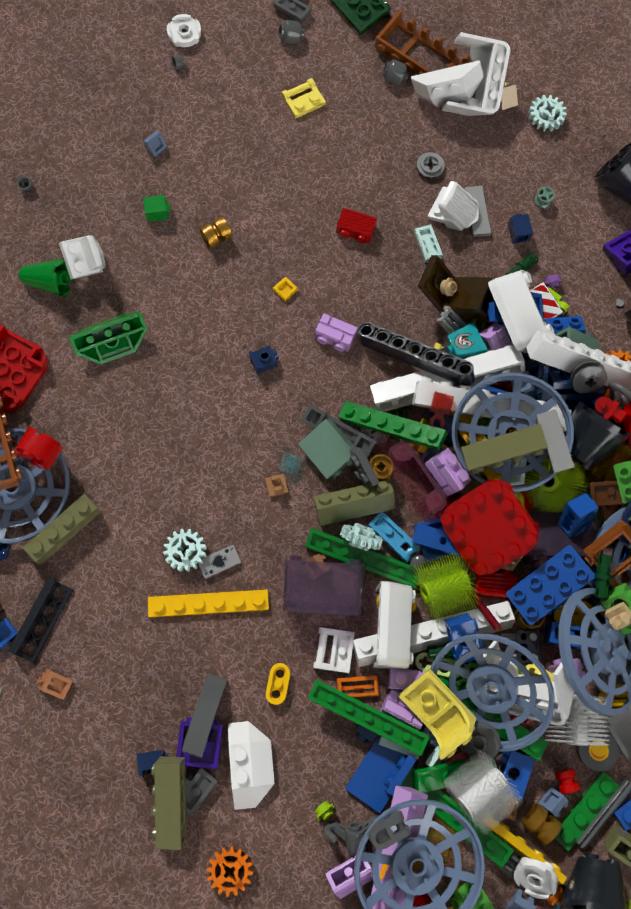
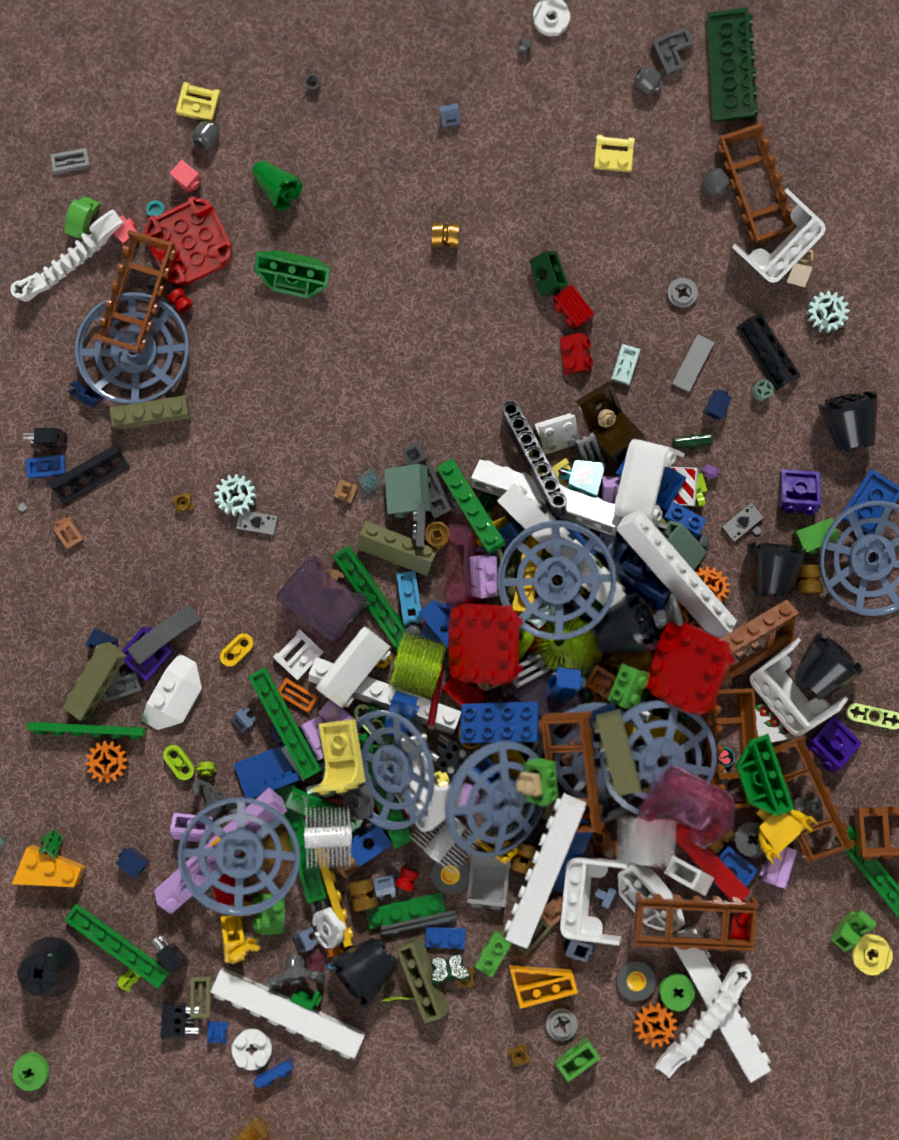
camera: 45 degrees right, 10 degrees up
(24, 420) = (180, 301): none -> red wheel
(38, 448) = (169, 335): red brick -> none
(83, 256) = (316, 185): white piece -> none
(143, 594) = (178, 502): none -> pearl gold plate
(156, 208) = (410, 178): green brick -> none
(184, 859) = (79, 730): none -> green plate
(208, 603) = (226, 550): yellow plate -> none
(261, 365) = (402, 380): dark blue brick -> none
(285, 289) = (471, 324): yellow tile -> none
(295, 824) = (177, 764): none -> lime plate
(326, 743) = (242, 721): none -> sand blue tile
(329, 212) = (548, 273): none -> dark green brick
(335, 333) = (485, 393): lavender brick -> none
(361, 537) = (381, 580): light aqua gear -> none
(381, 833) = (224, 811): dark grey plate -> none
(383, 259) = (576, 354): none -> red bracket
(417, 323) = (557, 433): none -> white bracket
(440, 406) = (516, 518): clear red plate -> none
(449, 84) = (751, 227): white wedge -> none
(455, 207) = (672, 349): white piece -> none
(504, 448) = (536, 588): olive brick -> none
(525, 169) = (766, 352): none -> black fence
(543, 516) = (539, 664): none -> light grey tile
(557, 446) = (582, 611): light grey tile -> none
(588, 377) = (656, 577): dark grey piece -> none
(602, 576) = (539, 744): dark green pin -> none
(605, 303) = (742, 522): none -> light grey tile
(610, 409) = (654, 619): red hips -> none

